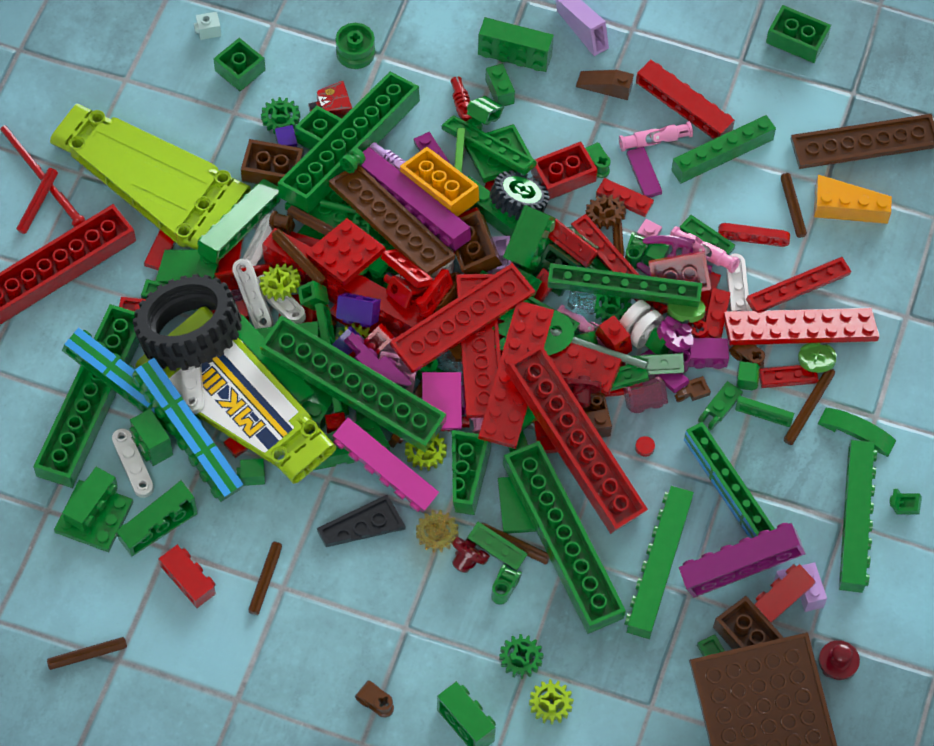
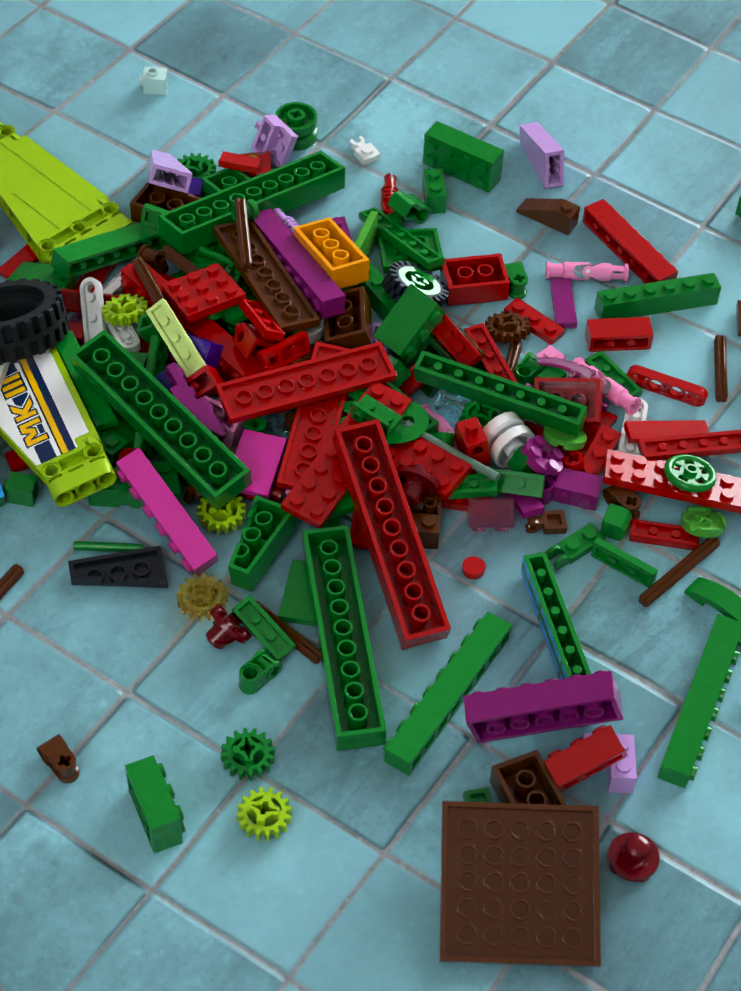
camera: 15 degrees right, 10 degrees down
(239, 64) = (171, 117): green brick -> none
(261, 128) = (168, 172): none -> lavender slope
(269, 180) = (150, 216): none -> green bracket
(322, 102) = (239, 162): none -> red tile
(341, 305) = (175, 337): none -> yellowish green plate
(342, 505) = (105, 546): none -> green bar
(343, 66) = (274, 137): none -> lavender plate
(362, 186) = (243, 233): none -> reddish brown axle
(424, 57) = (364, 152): none -> white plate
(530, 335) = (370, 409): none -> green bracket
(700, 193) = (619, 334): none -> red brick
(764, 279) = (651, 429): none -> red tile
(797, 318) = (690, 473): none -> green plate

